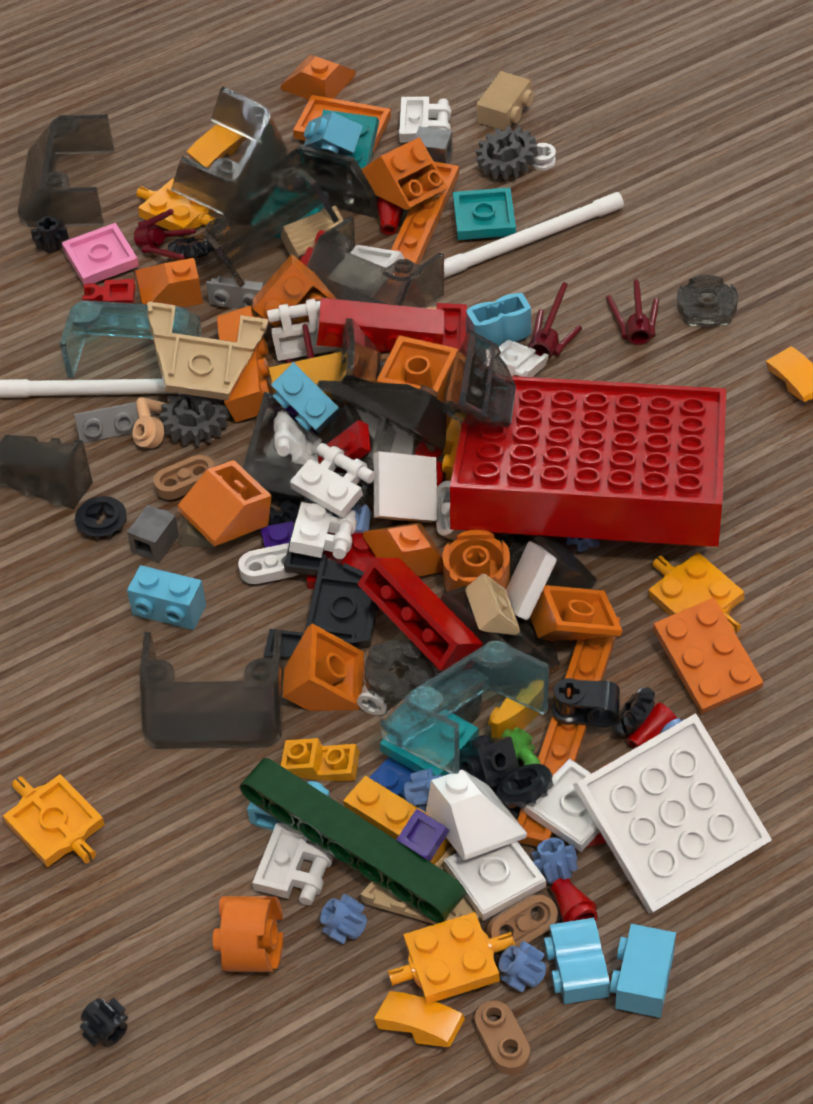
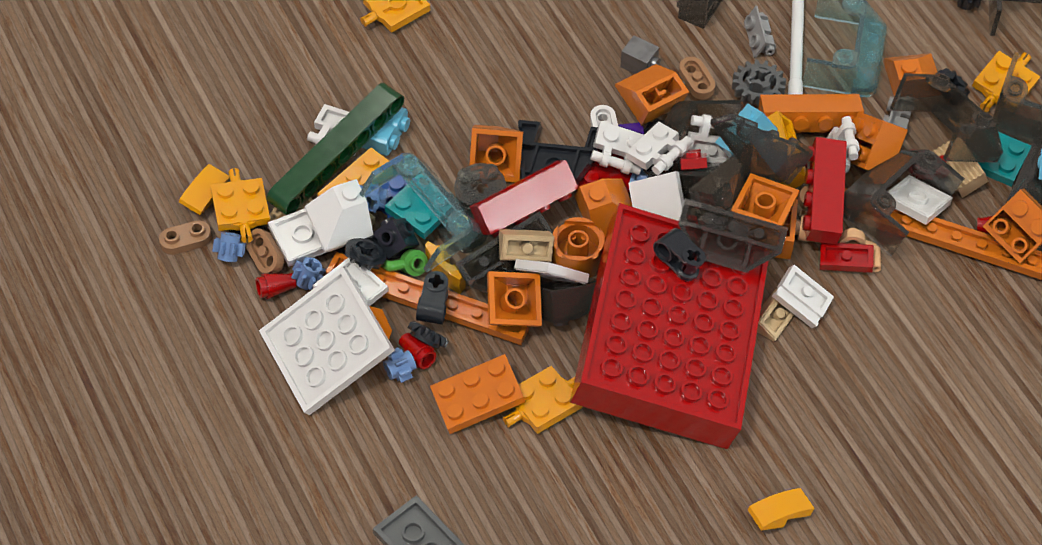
camera: 90 degrees right, 5 degrees up
(92, 510) = (654, 24): black gear -> none
(100, 254) = (946, 28): bright pink plate -> none
(104, 1022) = (237, 27): black gear -> none
(113, 291) = (898, 36): red plate -> none
(148, 430) = (744, 53): light nougat plate -> none
(149, 236) = (963, 59): dark red plant -> none
(166, 597) = (575, 62): medium azure brick -> none
(201, 364) = (789, 72): tan wing -> none
(212, 712) = (474, 107): clear smoke windscreen -> none
(249, 933) = (280, 96): orange brick -> none
(317, 762) = (426, 144): light orange slope -> none
(343, 918) = (286, 151): medium blue gear -> none
(423, 834) = (324, 181): dark purple plate -> none
(484, 213) = (995, 295): teal plate -> none
(501, 320) = (848, 286): medium azure brick -> none
(516, 426) = (680, 251): none -> black piece
(546, 339) = (832, 324): dark red plant -> none
(578, 961) = (228, 281): medium azure brick -> none
(596, 209) = (1004, 383): white piece -> none
(638, 327) = (847, 394): dark red plant -> none
(644, 970) = (209, 315): medium azure brick -> none
(716, 312) = (878, 468): clear smoke plate -> none

